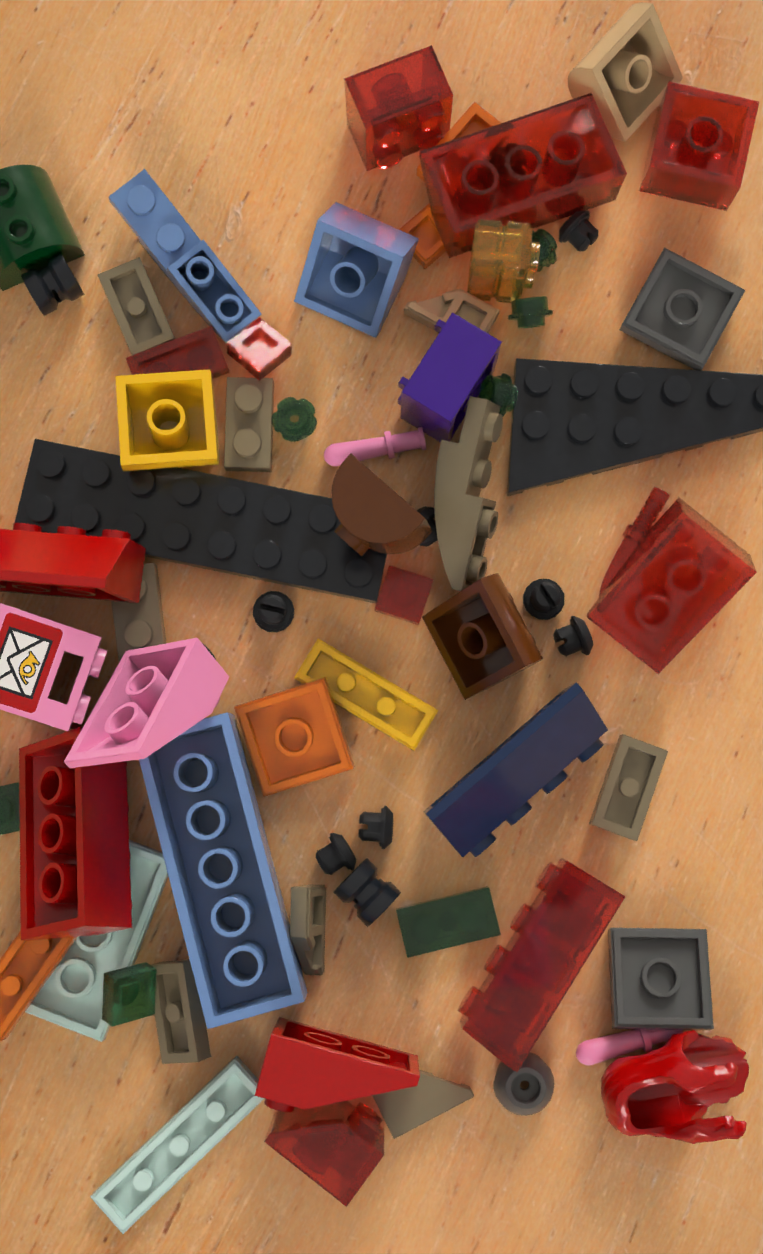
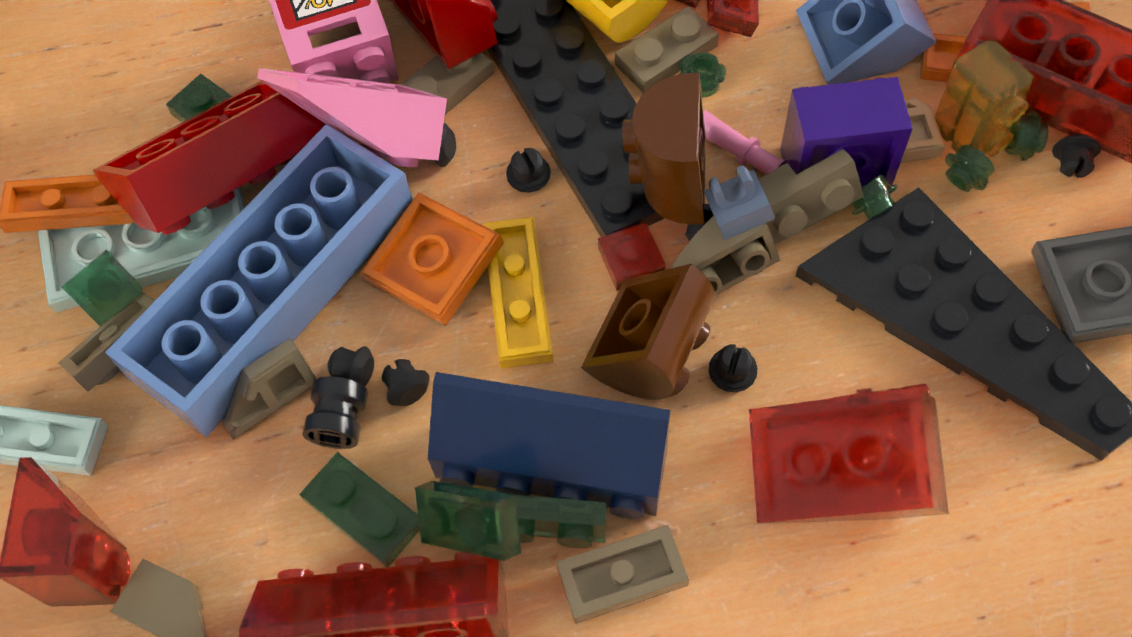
camera: 55 degrees right, 20 degrees down
(321, 1067) = (135, 470): red slope -> none
(449, 501) = (738, 203): none -> sand blue tile
(526, 862) = (468, 519): none -> clear green plate
(573, 793) = (570, 521): none -> clear green plate
(575, 637) = (720, 418): black piece -> none

